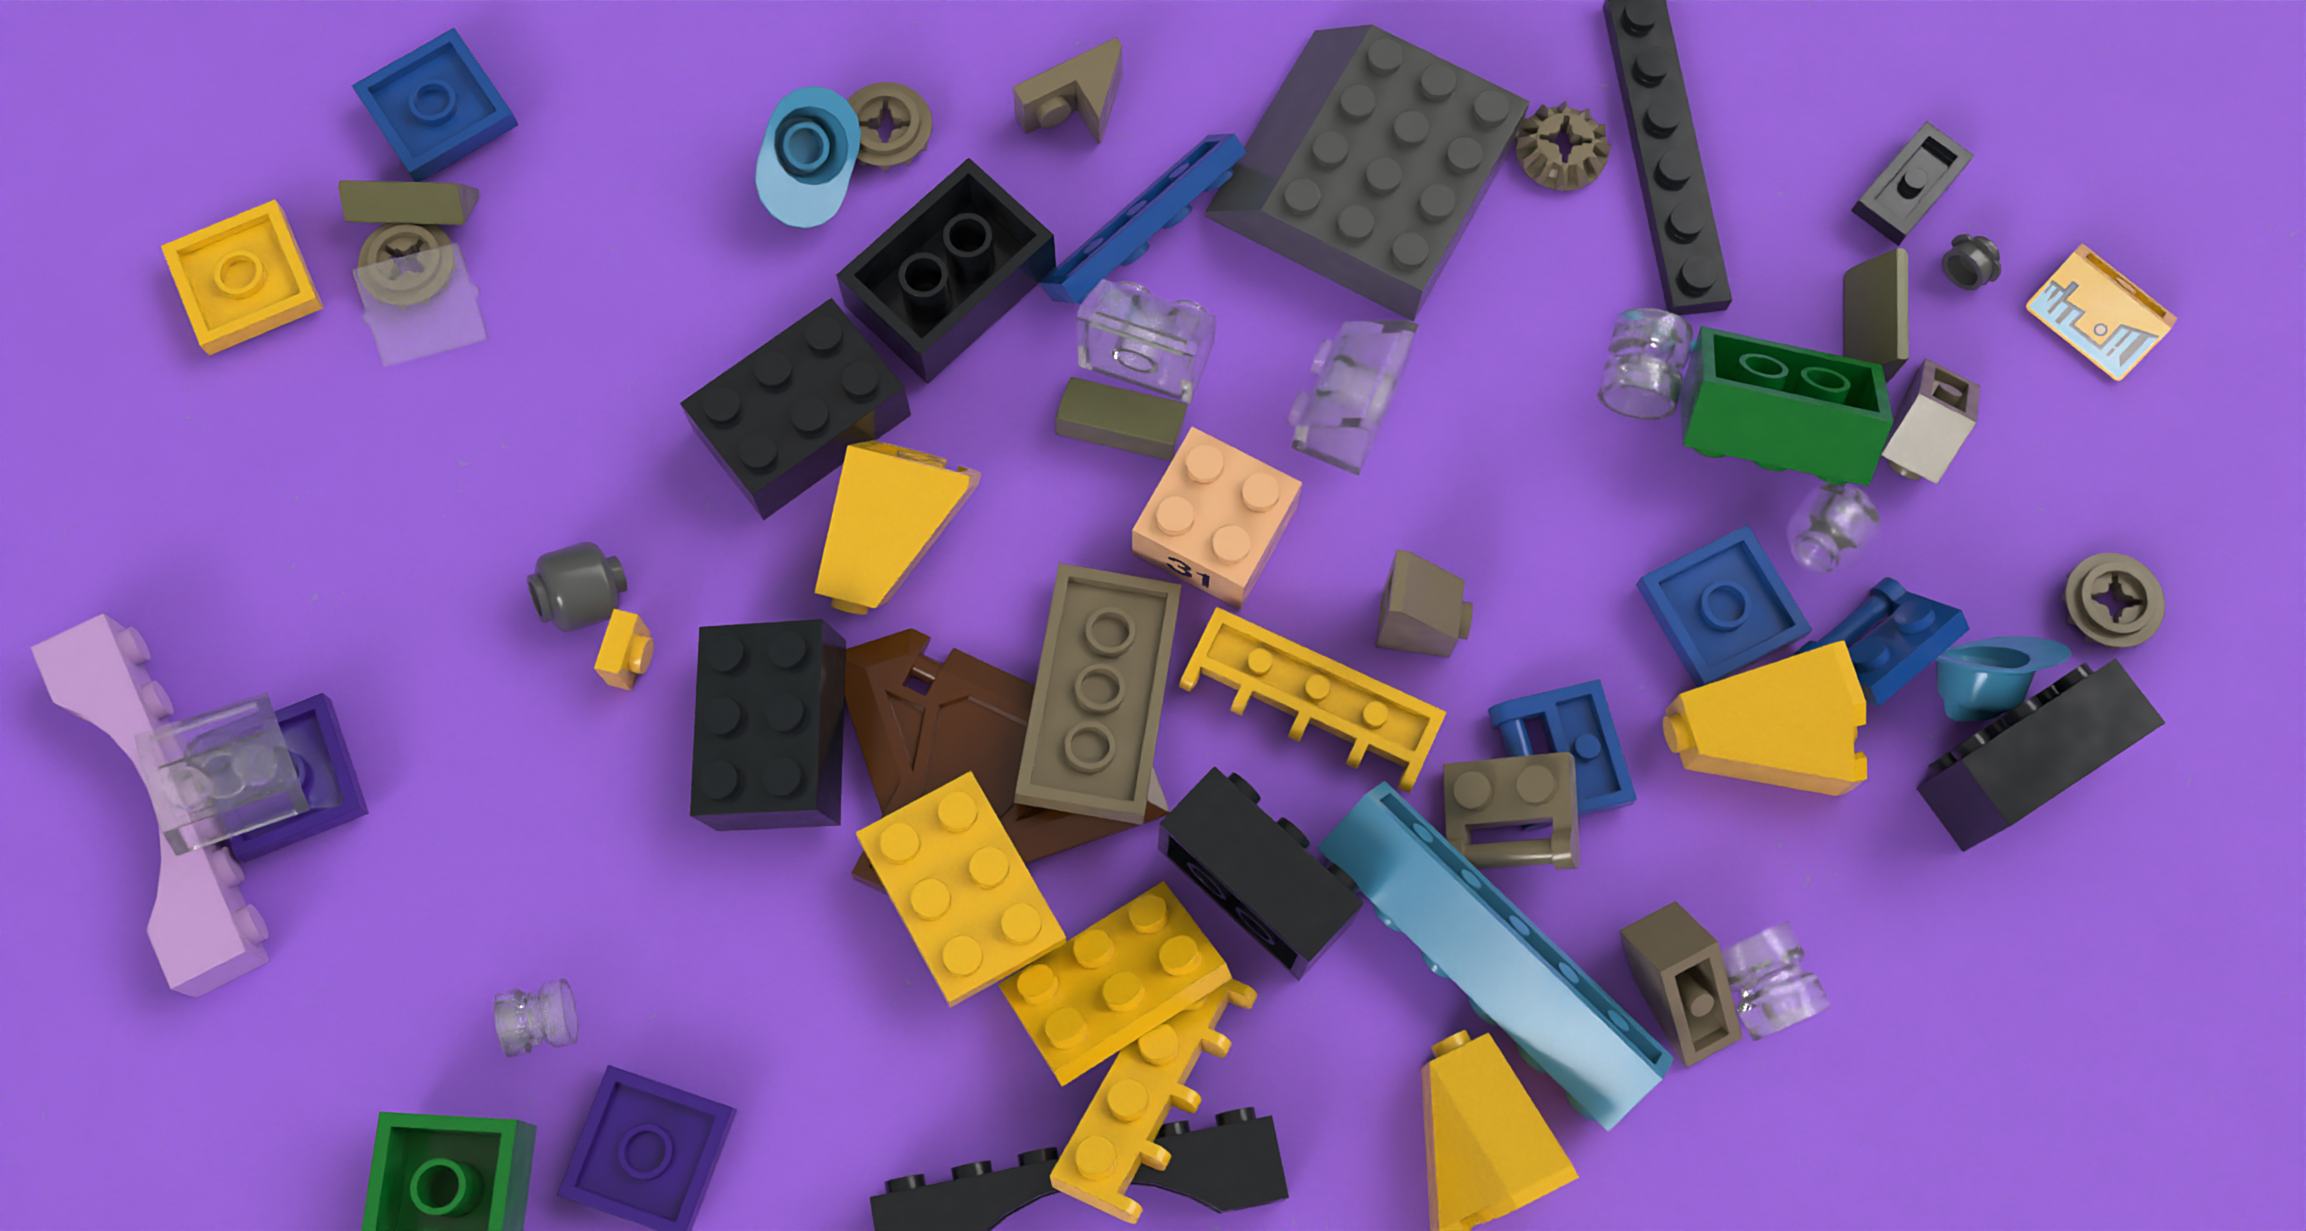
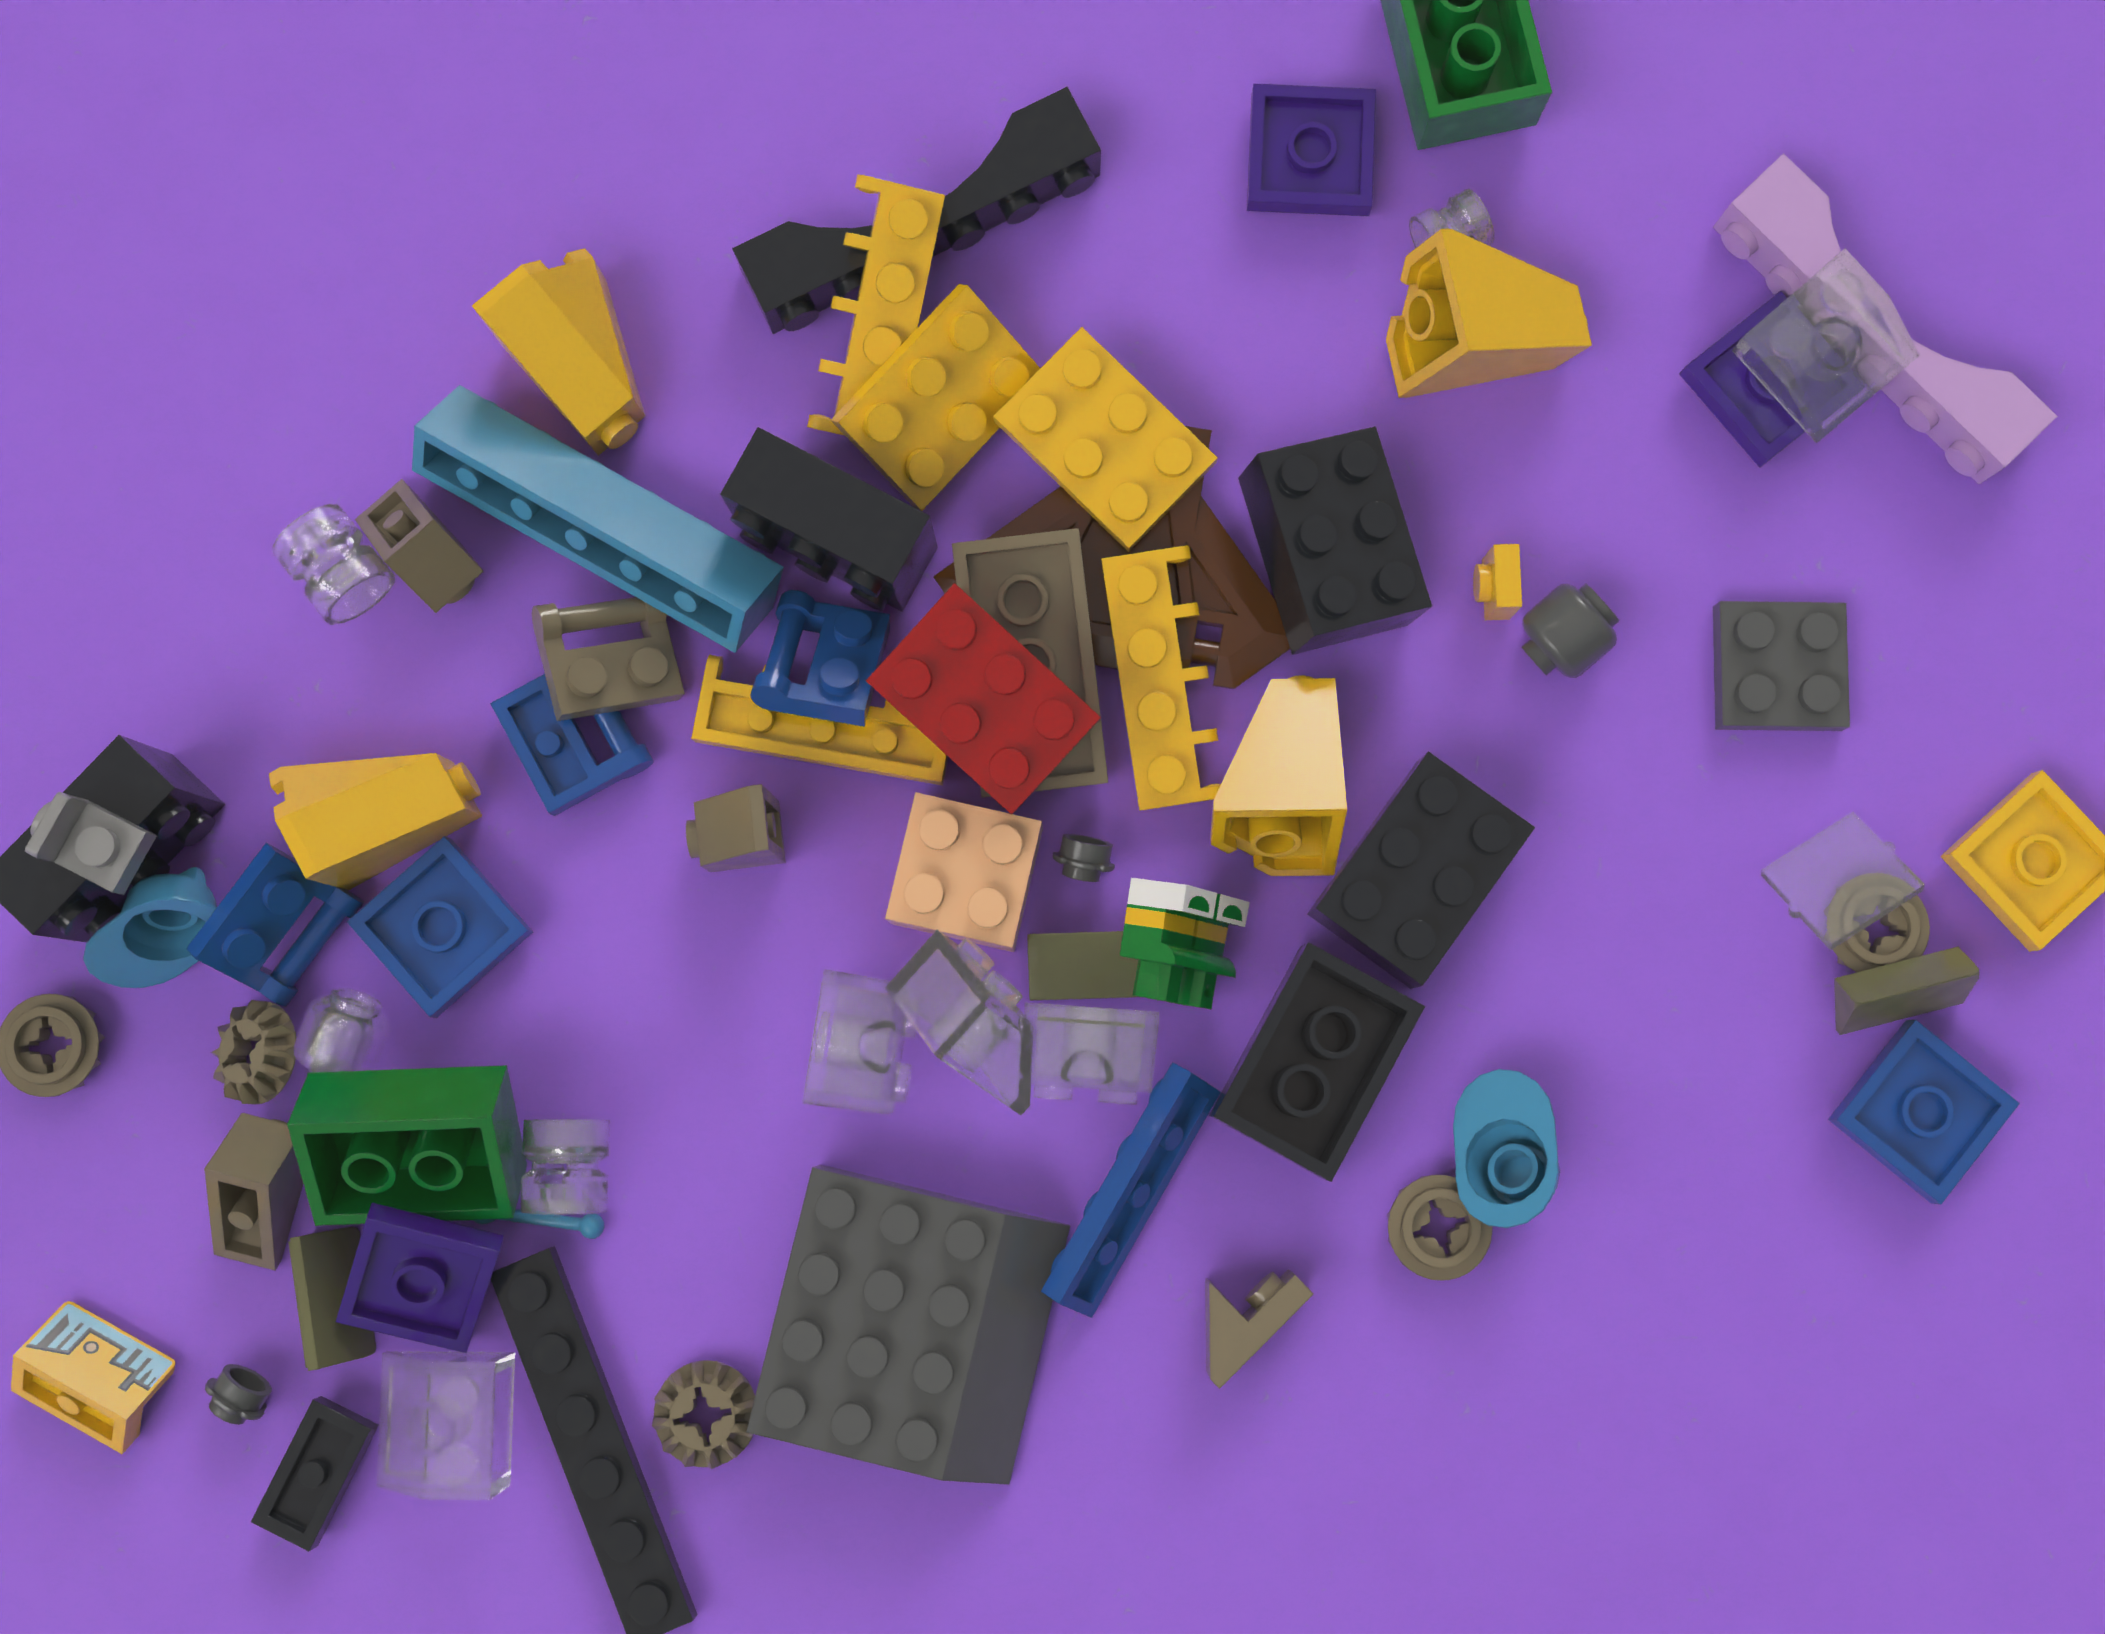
camera: 170 degrees right, 10 degrees up
(392, 510) = (1781, 666): none -> dark grey plate
(547, 905) = (1479, 317): none -> yellow slope
(983, 651) = (1154, 678): none -> yellow hinge
(1038, 398) = (1179, 940): none -> green hips
(1100, 510) = (1084, 857): none -> dark grey plate
(1154, 649) = (983, 699): none -> red brick
(1252, 366) = (968, 1017): none -> clear slope
(1282, 738) = (844, 658): none -> blue plate
(1792, 190) = (446, 1424): none -> clear slope
(1793, 300) = (419, 1278): none -> dark purple plate
(1903, 519) = (270, 1059): none -> dark tan gear
(2048, 720) = (89, 841): none -> light grey bracket

